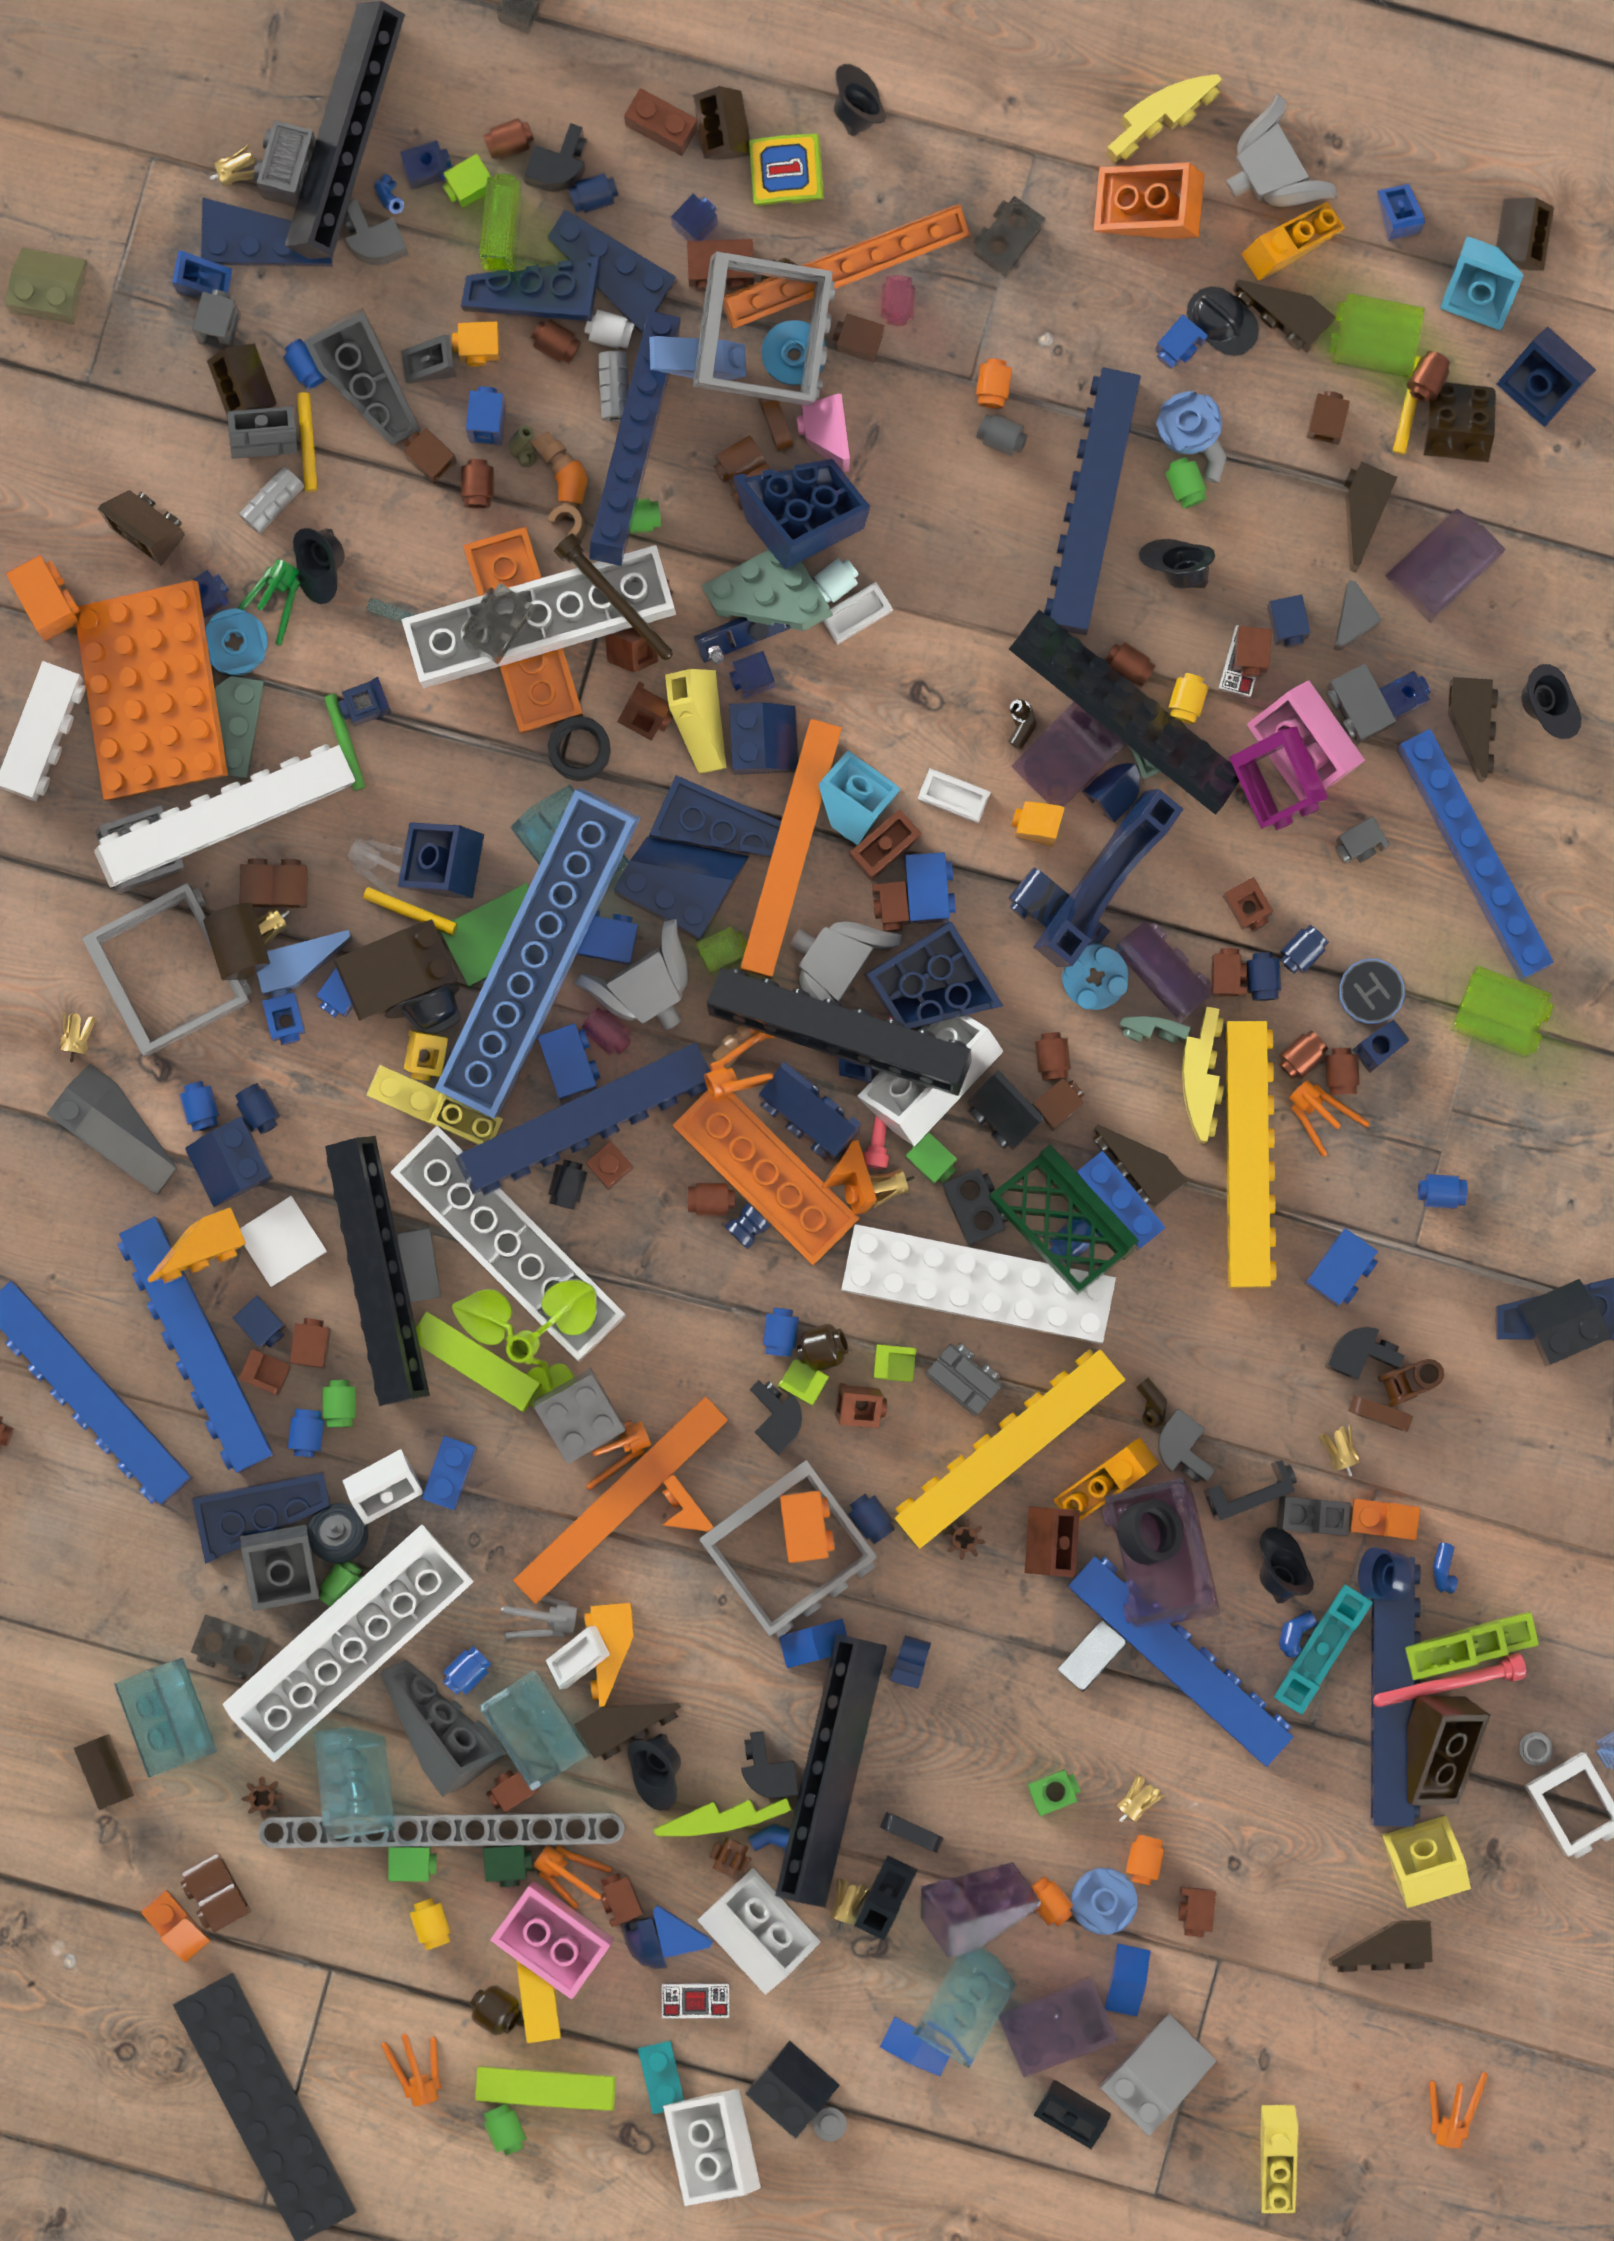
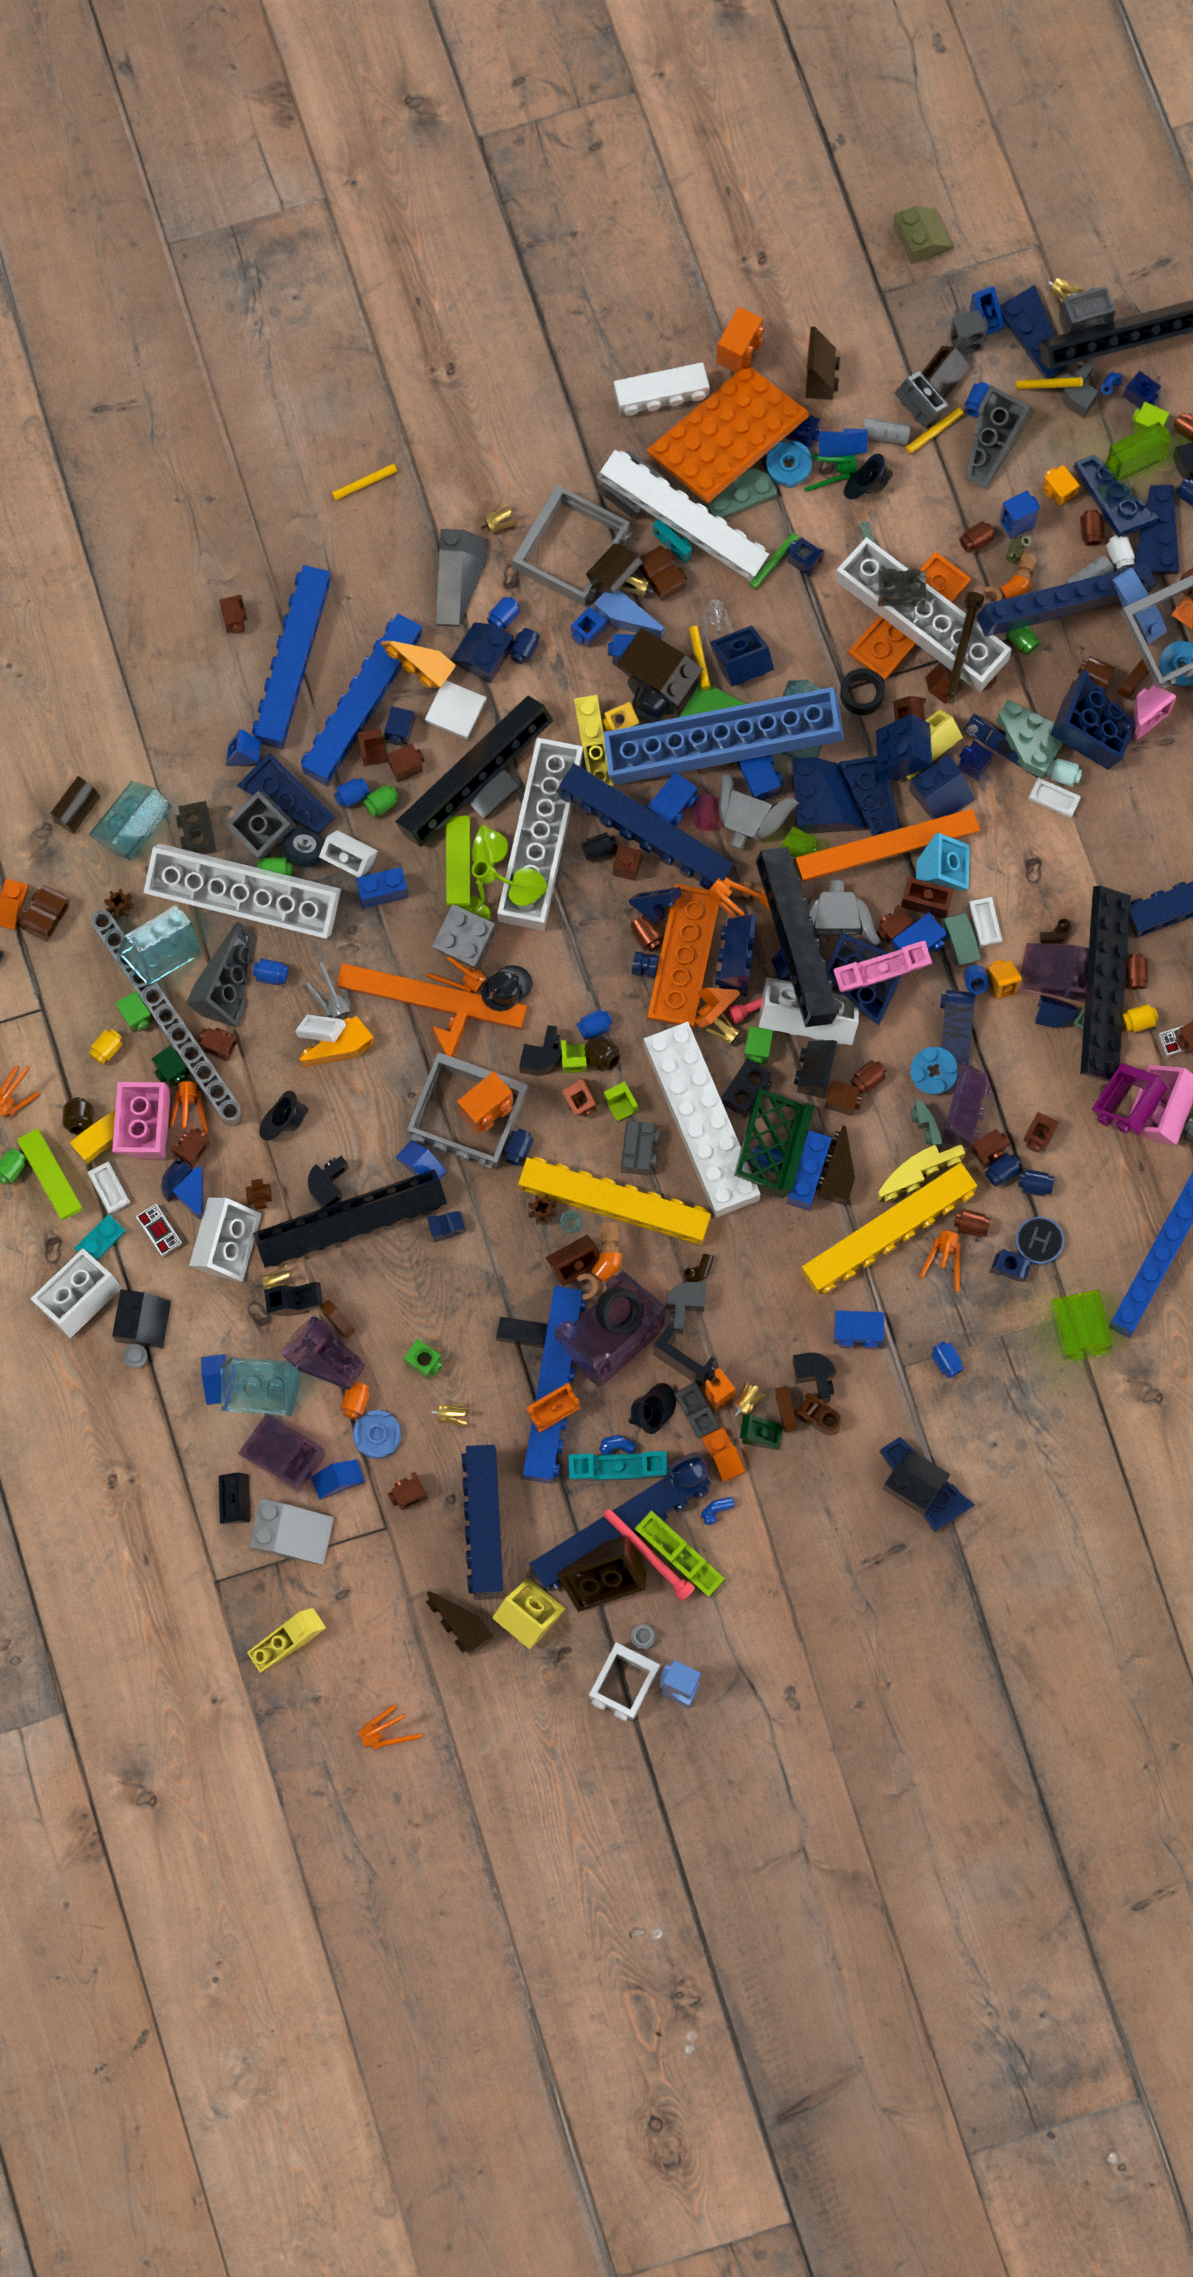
camera: 60 degrees right, 10 degrees down
(168, 1528) = (243, 749): none -> blue slope
(254, 842) = (677, 545): none -> teal plate
(258, 554) = (843, 443): none -> blue slope
(343, 268) = (1049, 383): none -> yellow bar
(428, 454) = (974, 500): reddish brown brick -> none
(429, 360) = (1031, 467): dark grey slope -> none
(534, 1730) = (261, 1030): clear light blue slope -> none
(604, 2027) = (109, 1188): none -> white tile
(615, 1724) = (292, 1075): dark brown slope -> none
(667, 1405) = (506, 988): none -> black piece
(679, 1165) = (653, 902): none -> dark blue slope
(687, 749) = (903, 747): none -> dark blue brick
(709, 1819) = (274, 1169): lime slope -> none
(772, 1834) = (288, 1211): blue arm -> none
(911, 1832) = (343, 1291): black beam -> none
(942, 956) = (883, 967): none -> bright pink slope
(942, 1862) = (337, 1319): none -> reddish brown beam
(958, 837) = (962, 939): none -> sand green slope
(1002, 1525) = (575, 1217): none -> clear light blue bush
(1020, 855) = (979, 984): none -> blue brick
(1080, 914) = (998, 1036): dark blue arch -> none
(1084, 1505) = (607, 1265): none -> medium nougat piece
(1108, 1479) = (649, 1274): light orange slope -> none
(1145, 1860) = (418, 1441): orange brick -> none
(1214, 1682) = (553, 1408): none -> orange hinge
(1293, 1846) = (484, 1522): none -> dark blue brick
(1320, 1477) = (721, 1391): none -> orange hinge
(1342, 1071) = (978, 1253): copper brick -> none
(1361, 841) = (1125, 1174): dark grey brick -> none
(1390, 1460) = (760, 1432): none -> dark green slope

